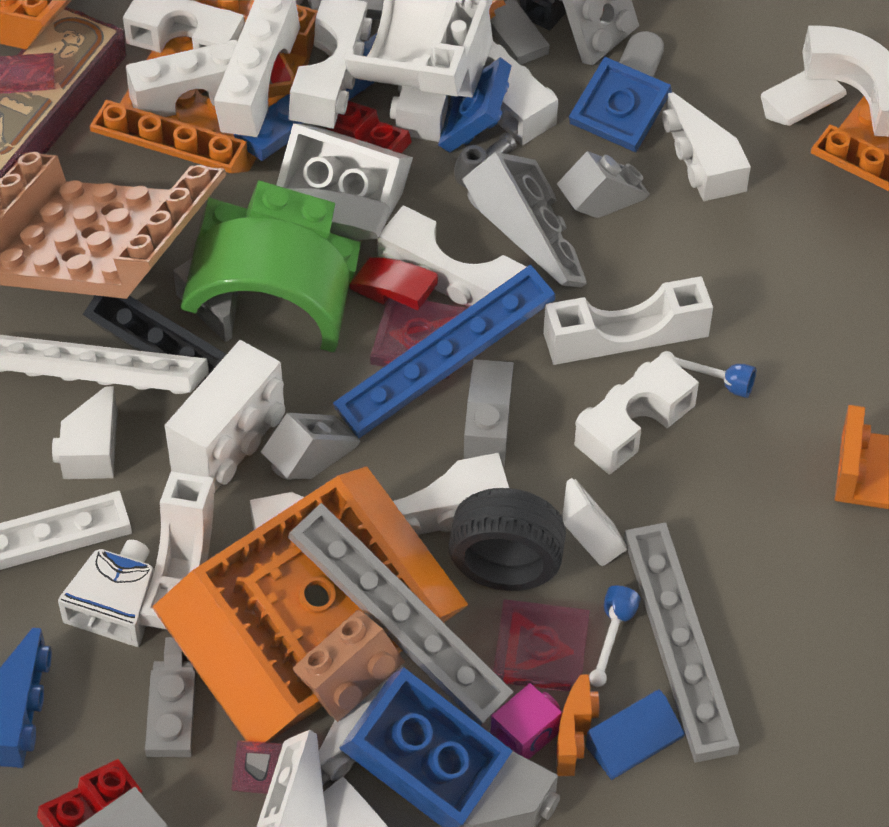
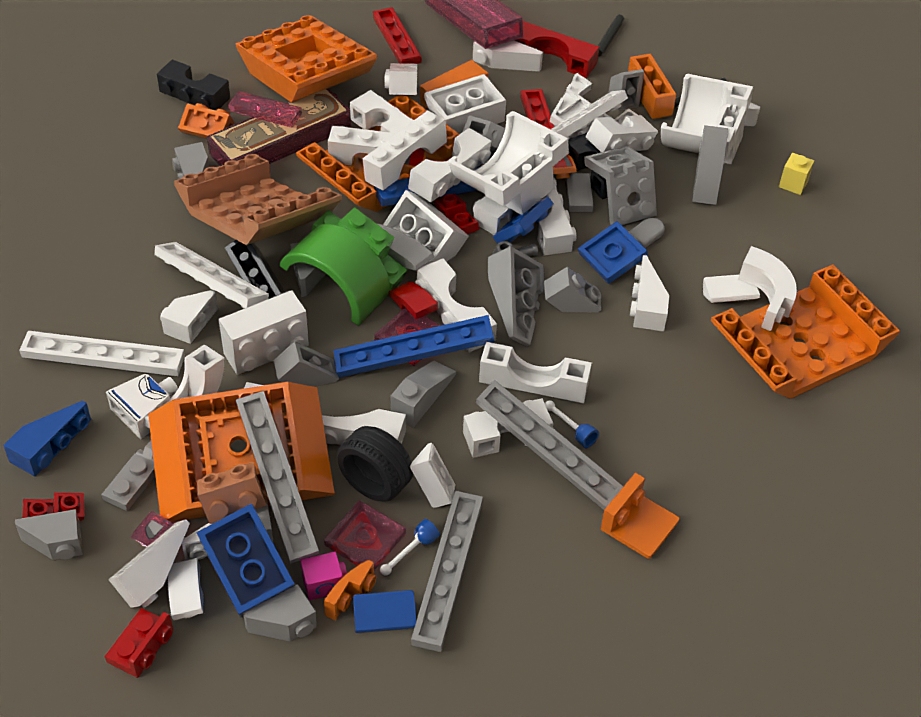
camera: 25 degrees right, 5 degrees down
(713, 413) = (549, 444): none -> light grey plate

